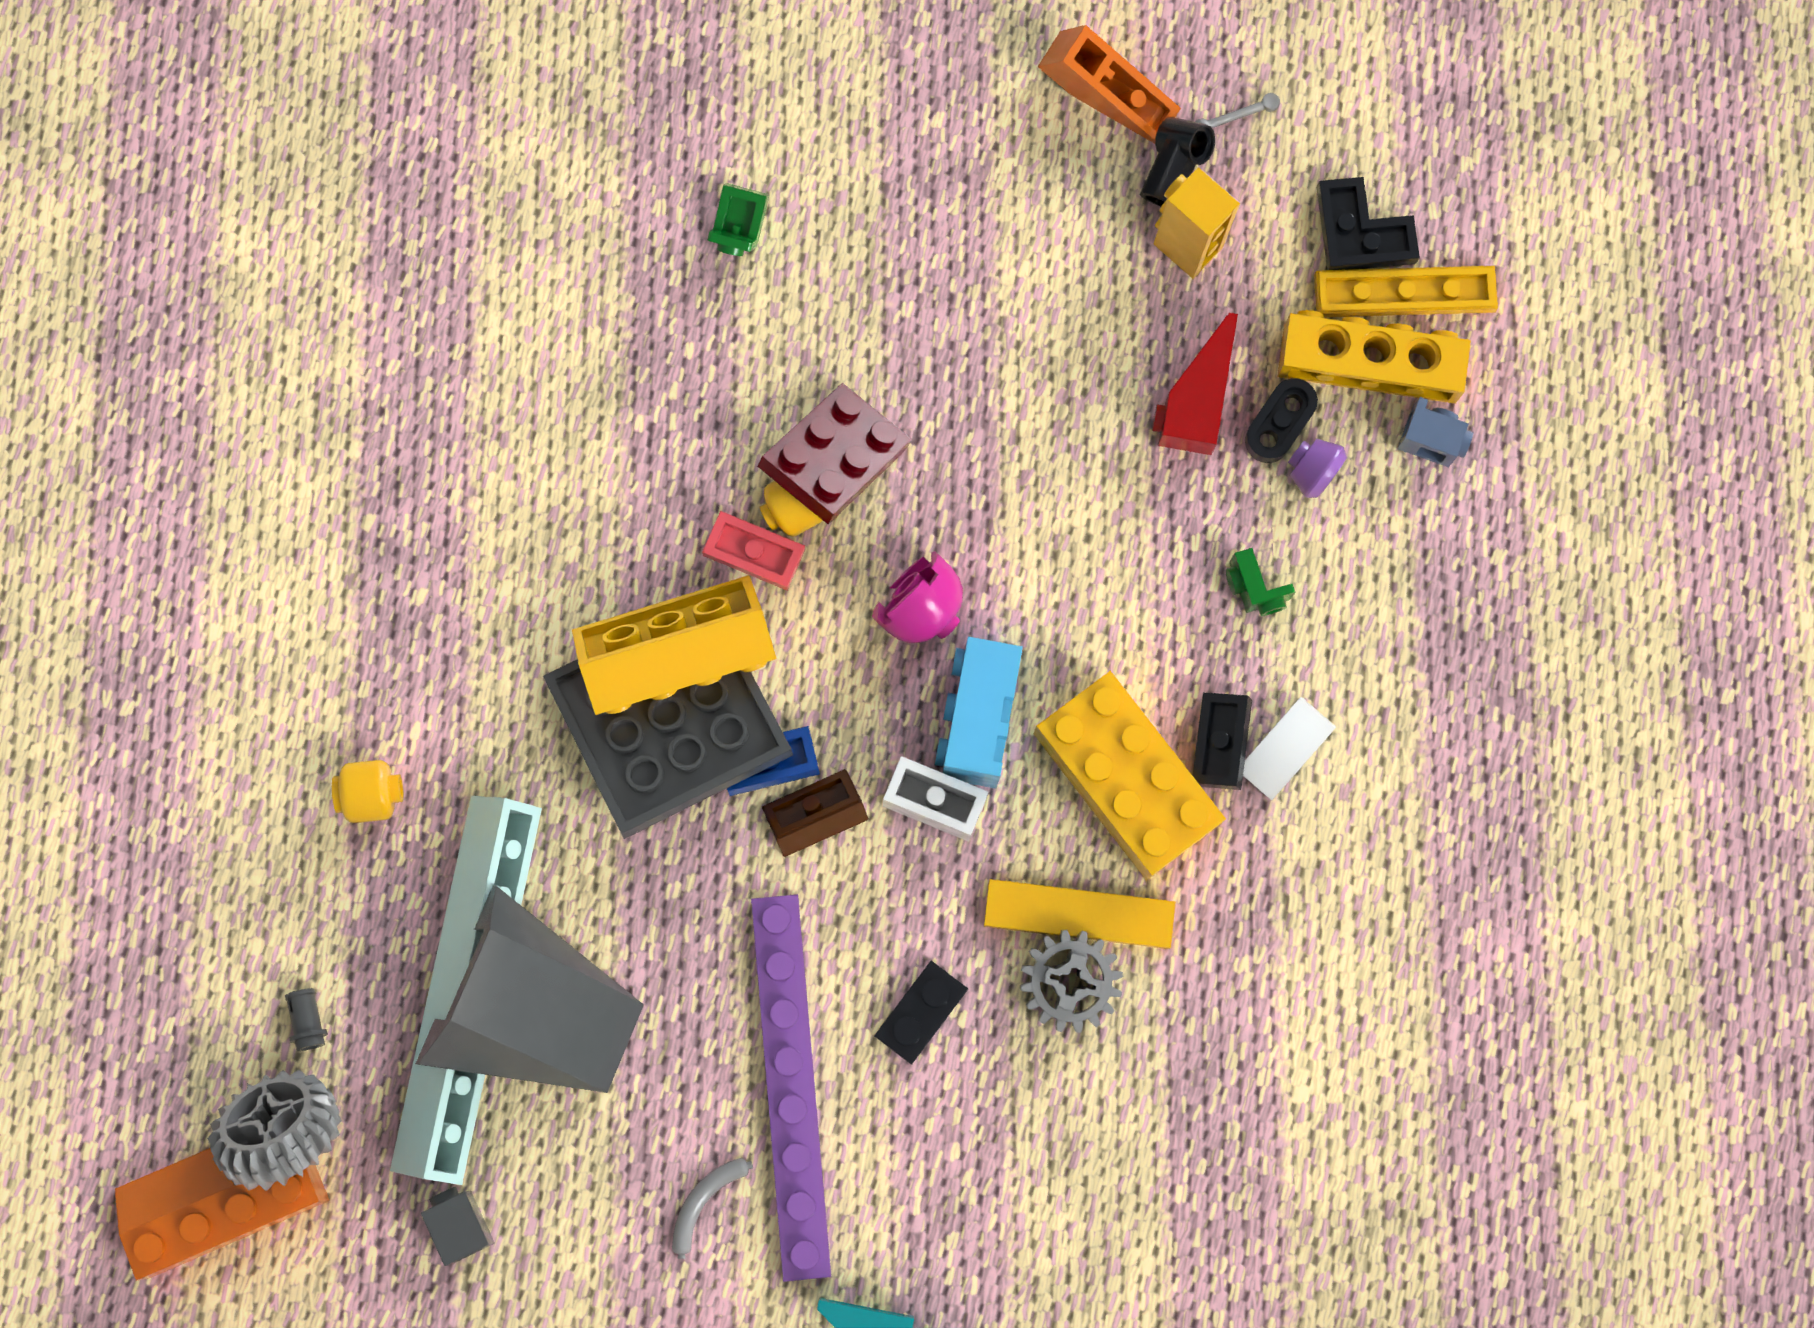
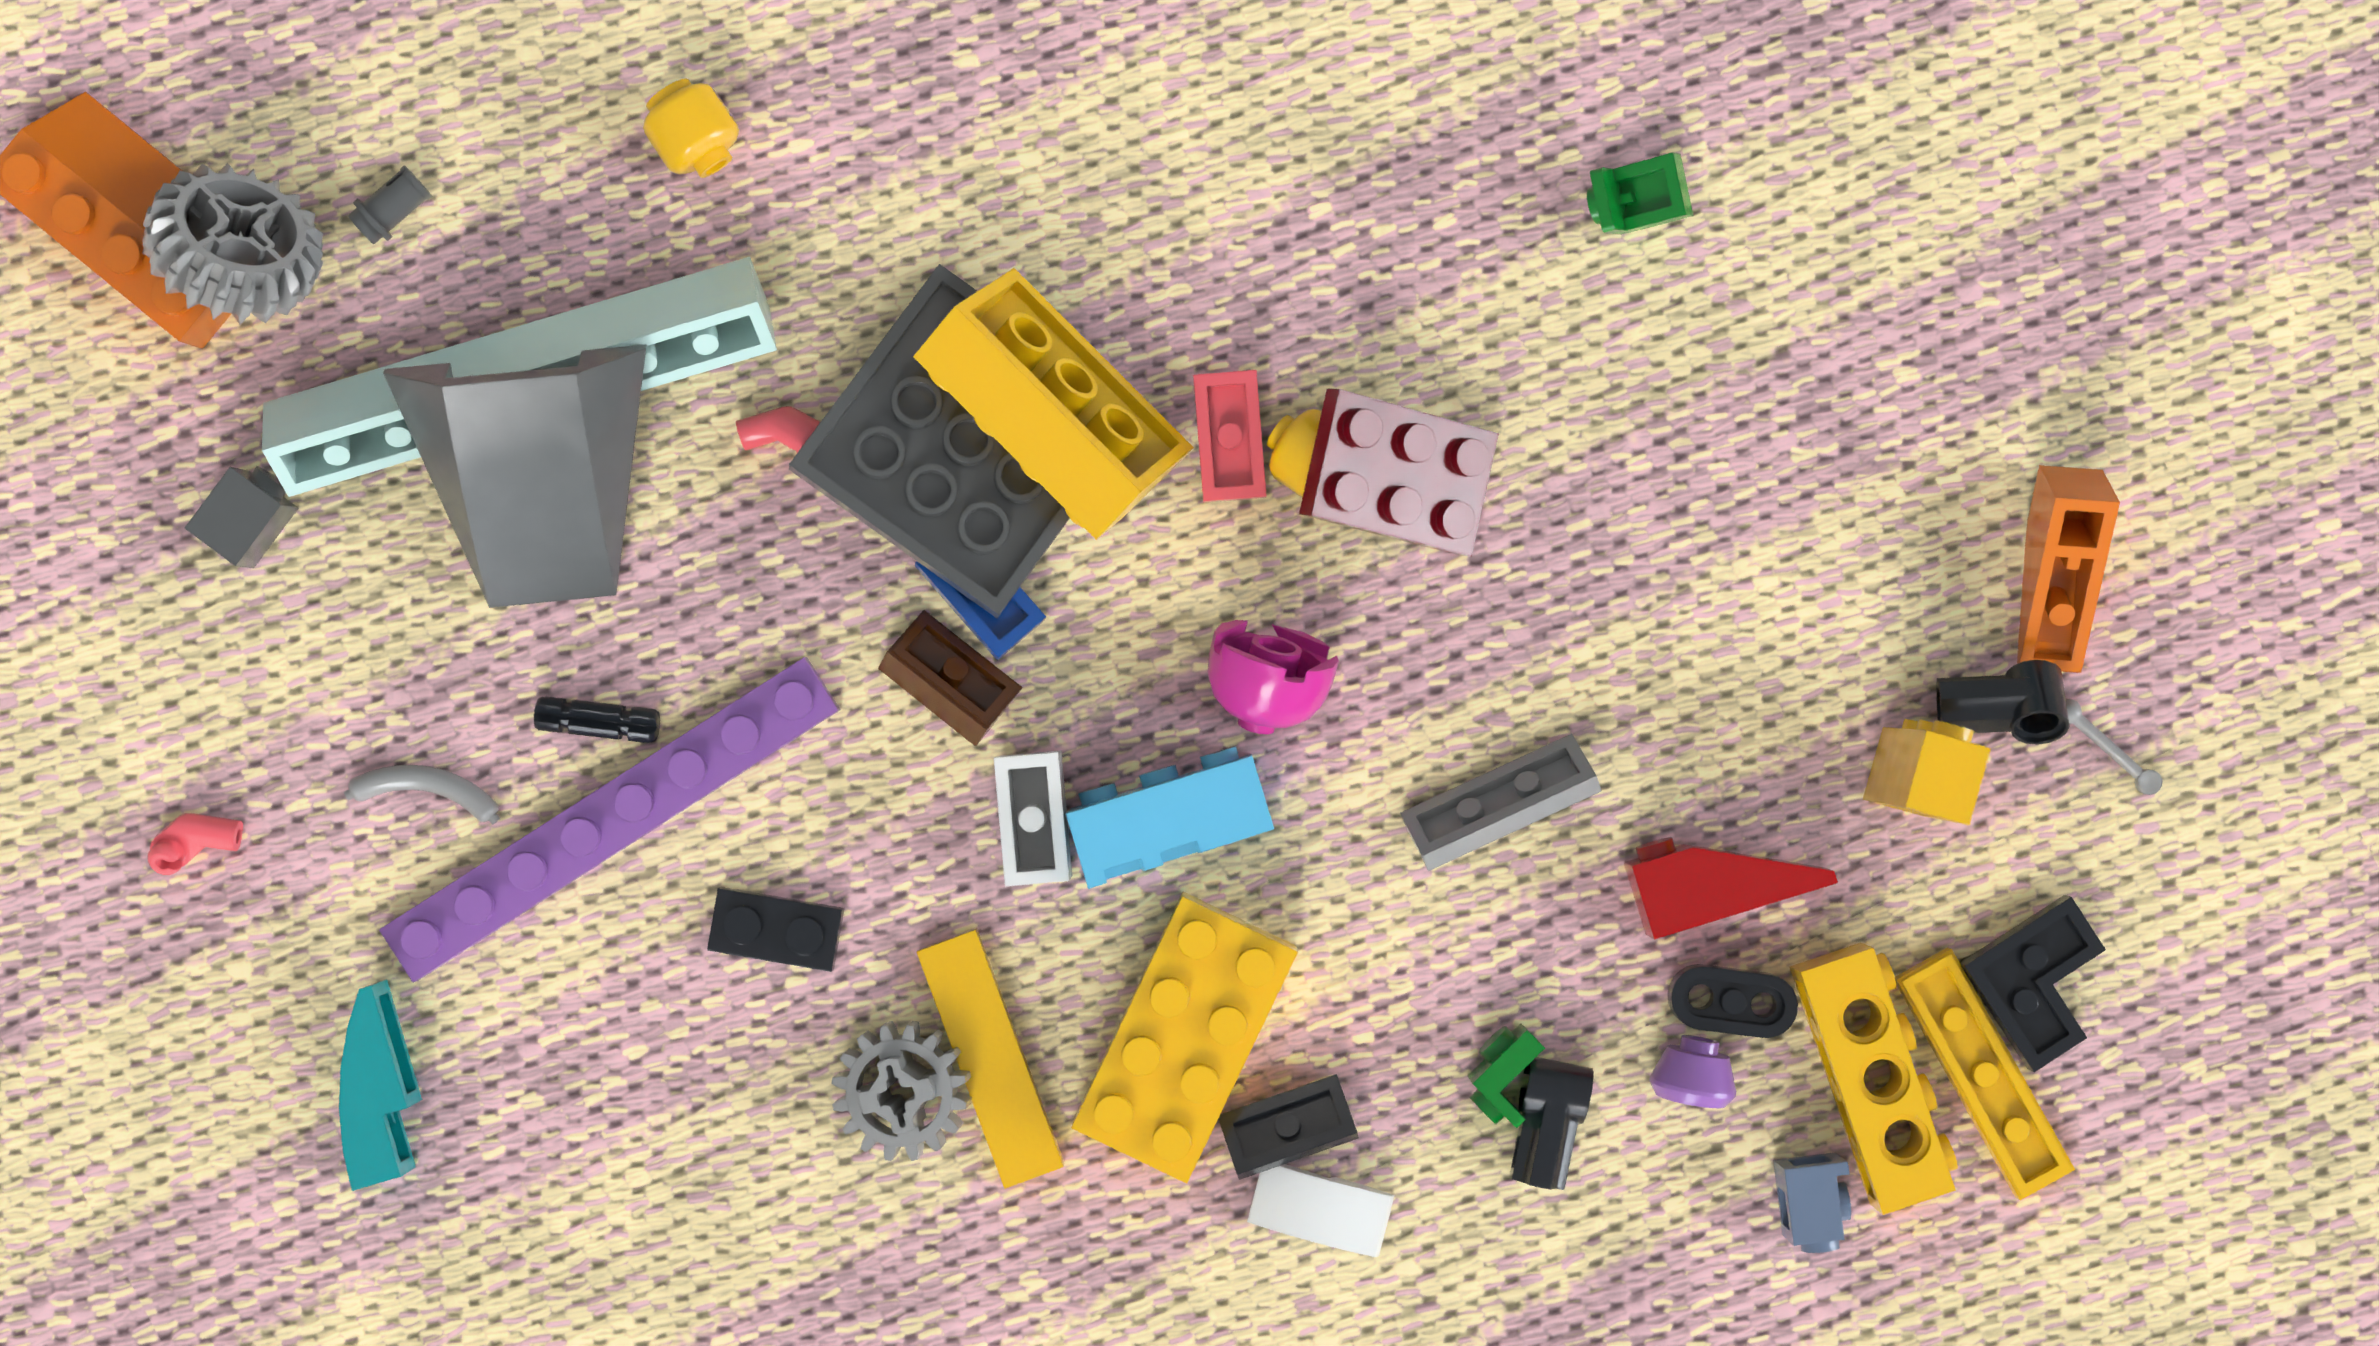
camera: 65 degrees right, 10 degrees up
(591, 835) = (780, 424): none -> coral arm
(719, 1059) = (596, 719): none -> black axle
(1079, 499) = (1500, 802): none -> light grey plate
(1291, 561) = (1553, 1108): none -> black piece

